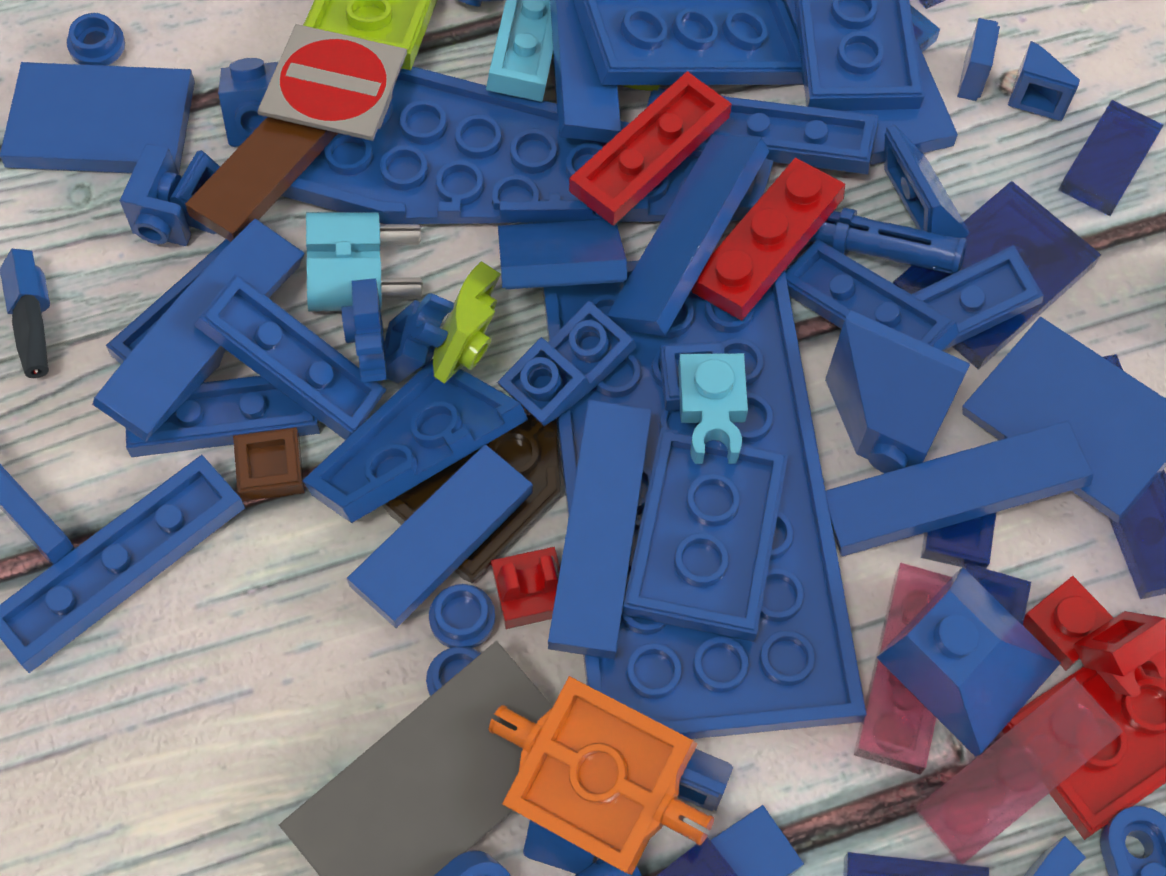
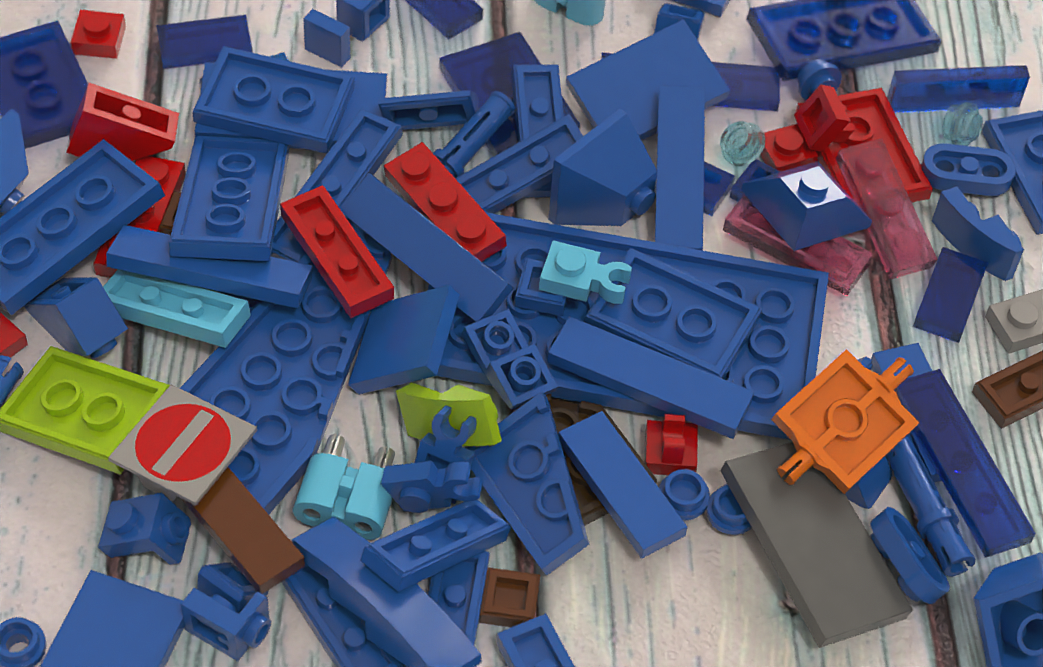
camera: 75 degrees left, 10 degrees down
(1046, 558) = (742, 143): none -> clear light blue plate

